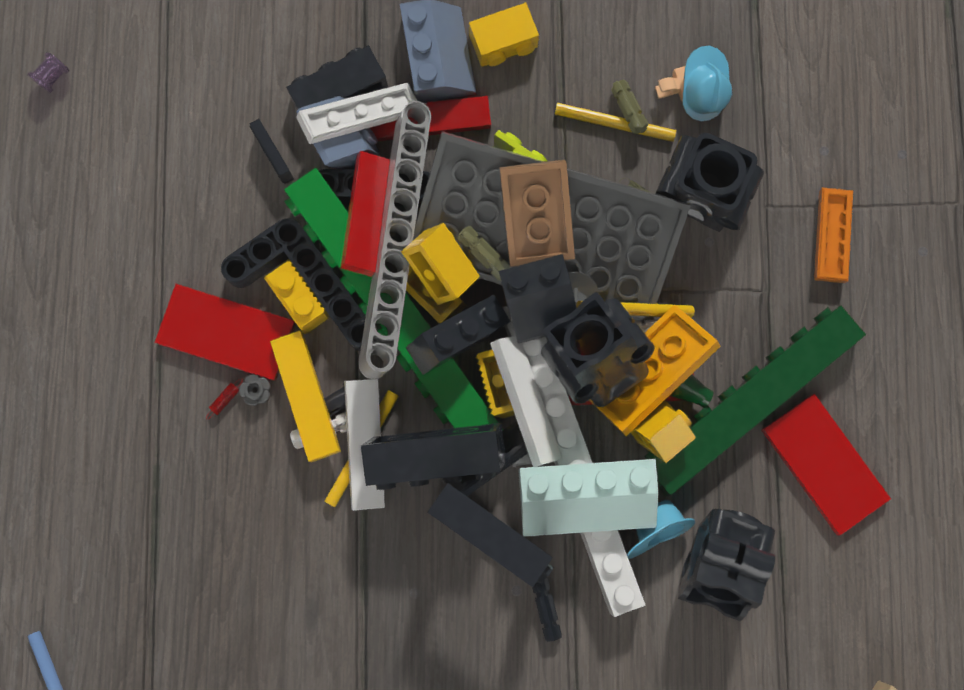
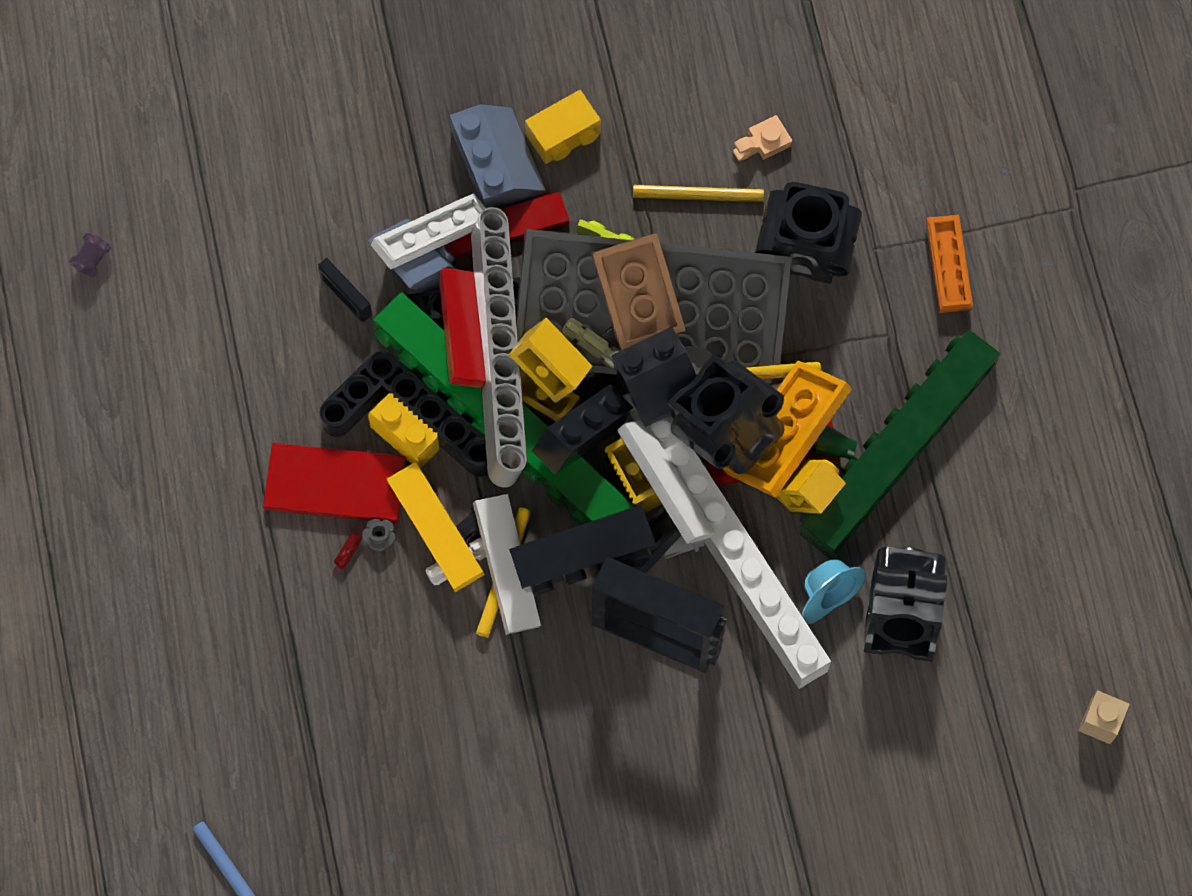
camera: 10 degrees left, 10 degrees down
(347, 78) = (411, 198): black brick -> none
(547, 611) = (731, 694): black axle -> none
(588, 497) = (751, 558): light aqua slope -> none
(629, 106) = (710, 174): olive axle -> none
(706, 83) = (784, 136): medium azure piece -> none
(826, 464) = (989, 494): red tile -> none

